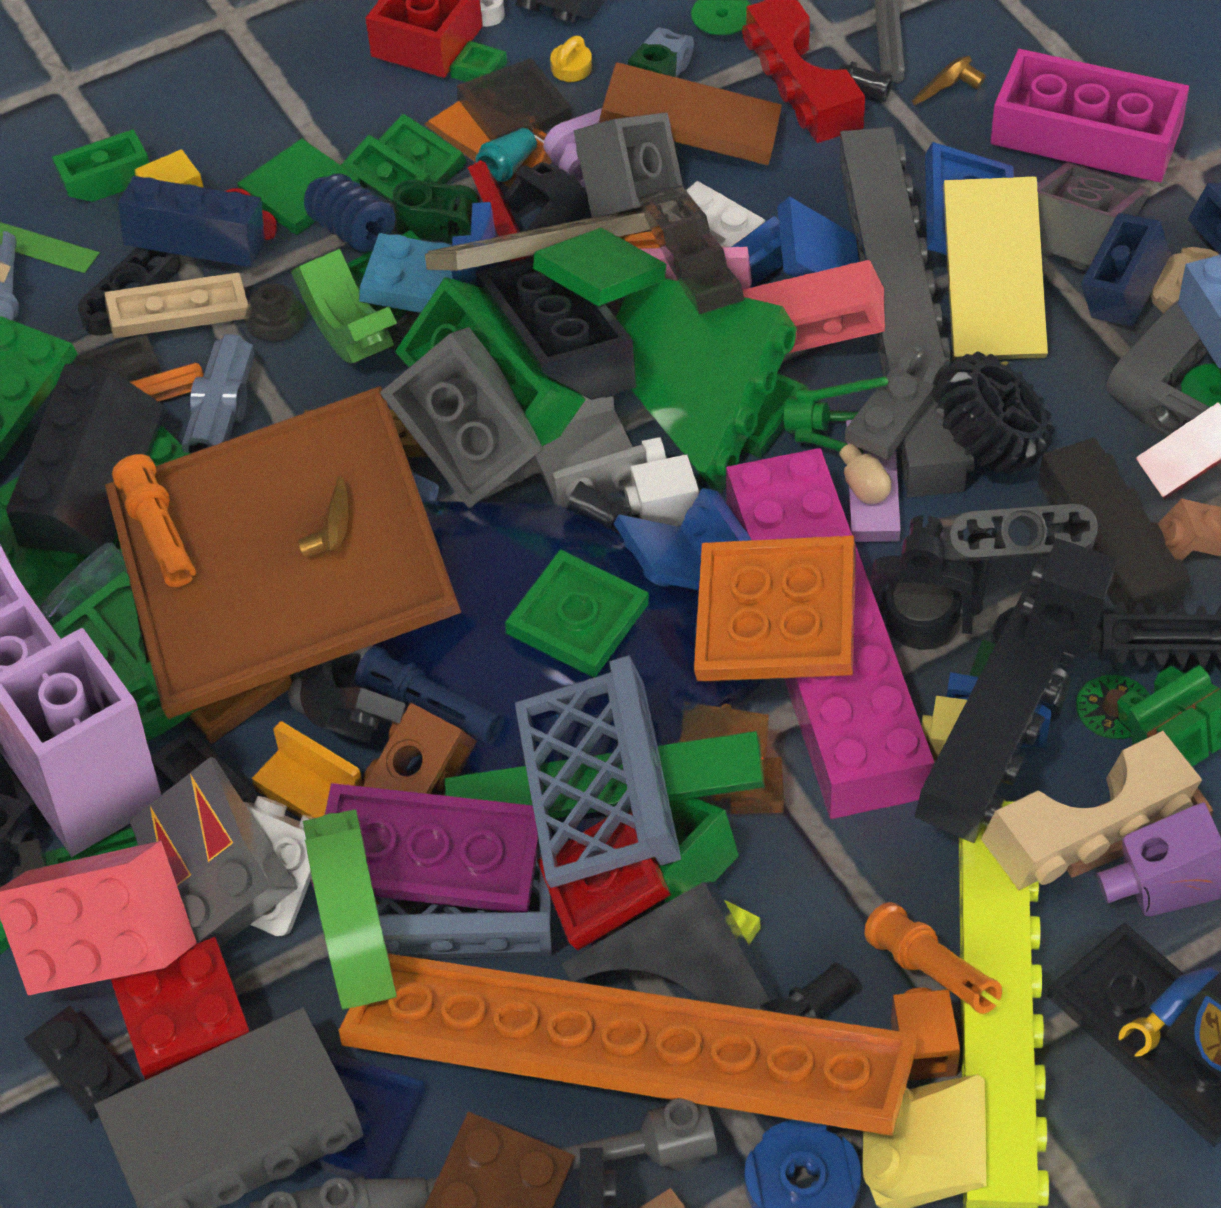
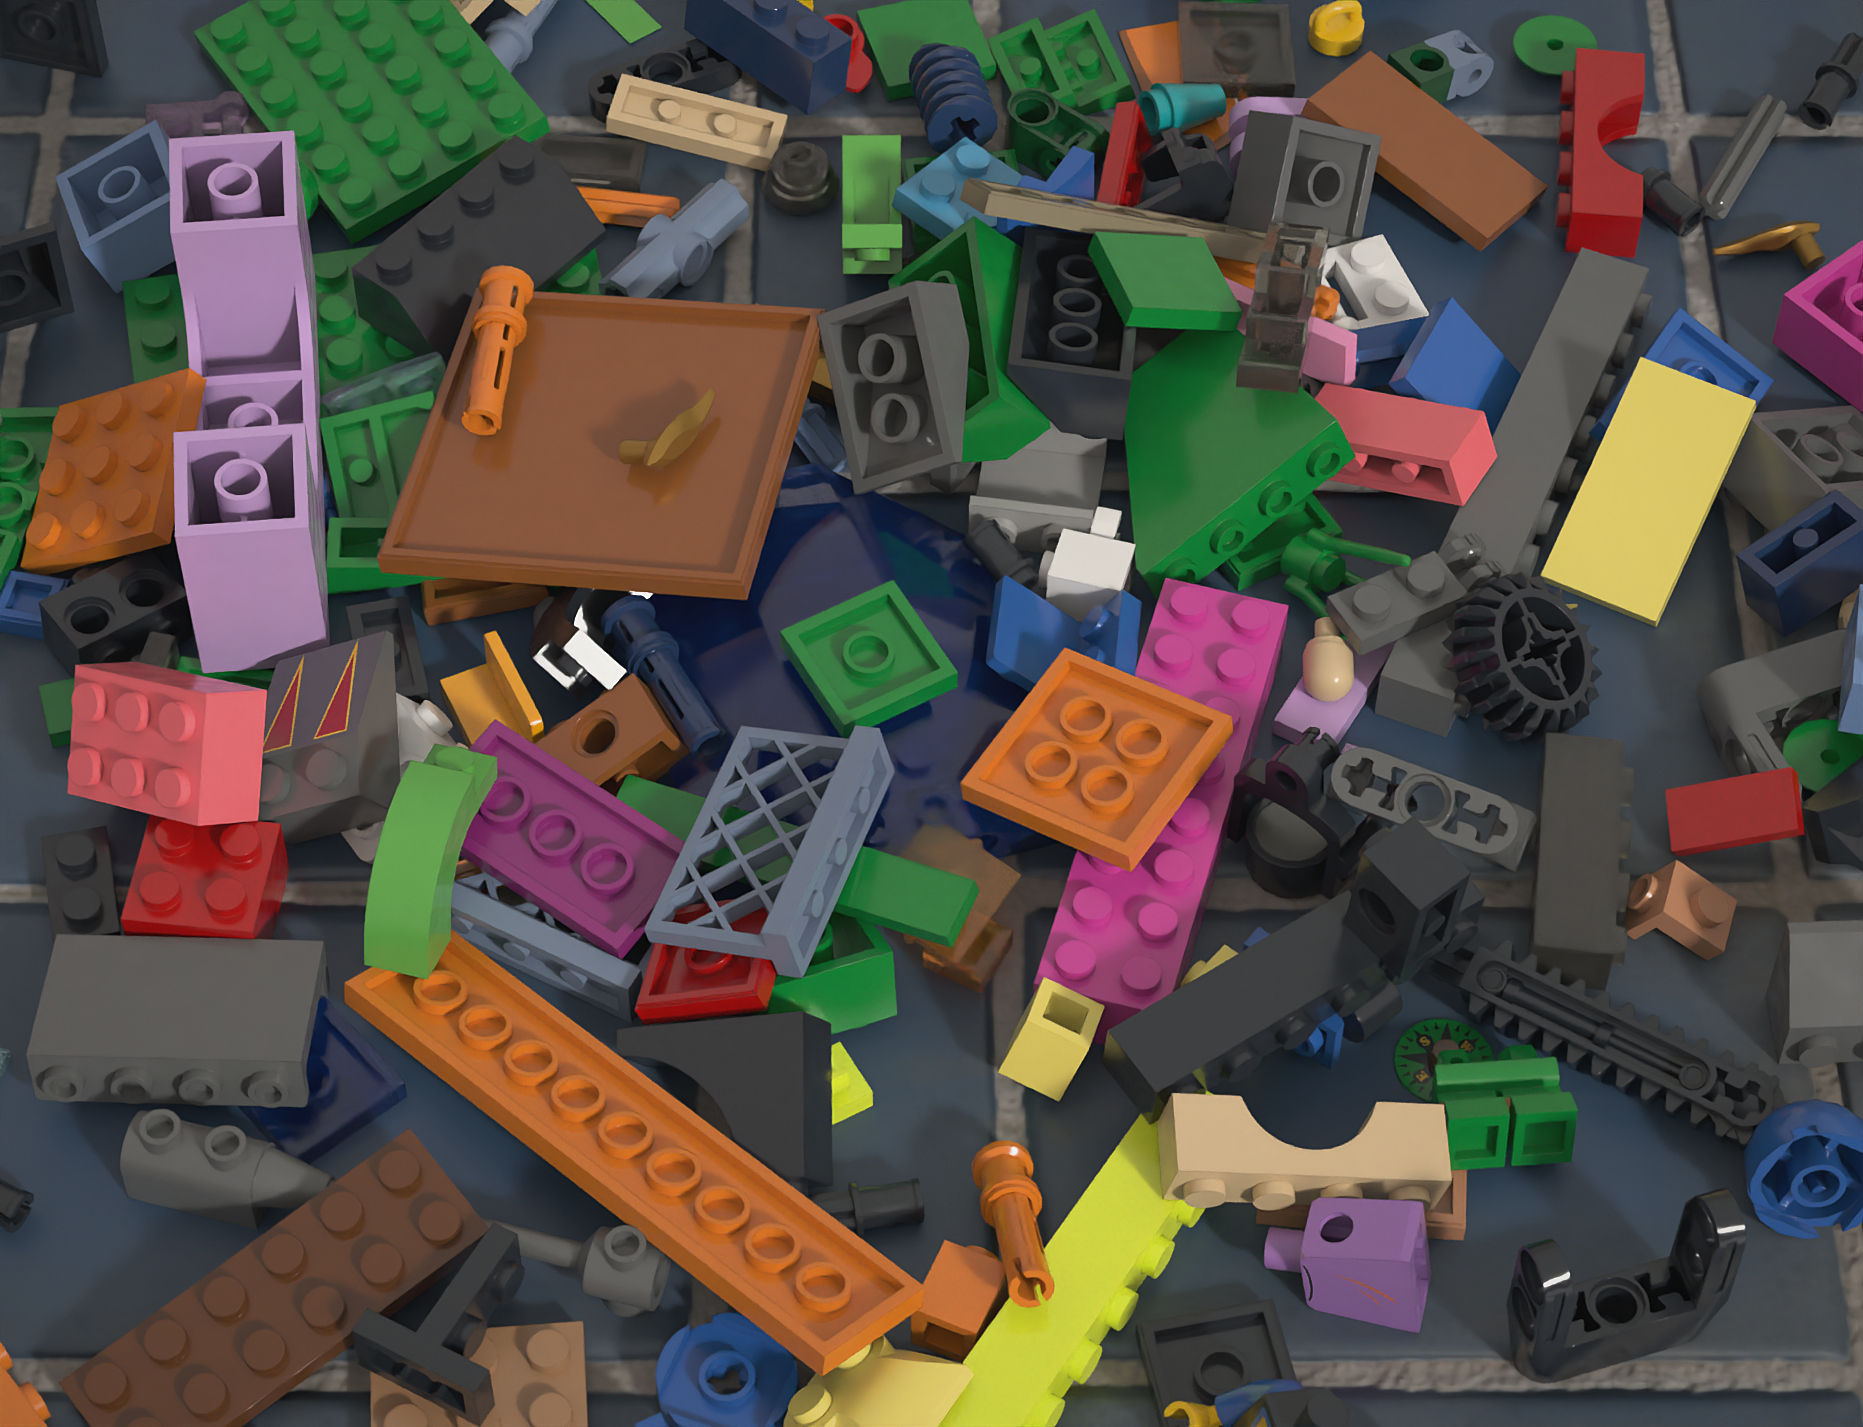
camera: 25 degrees right, 0 degrees up
(863, 818) = (1051, 1039): none -> light yellow brick

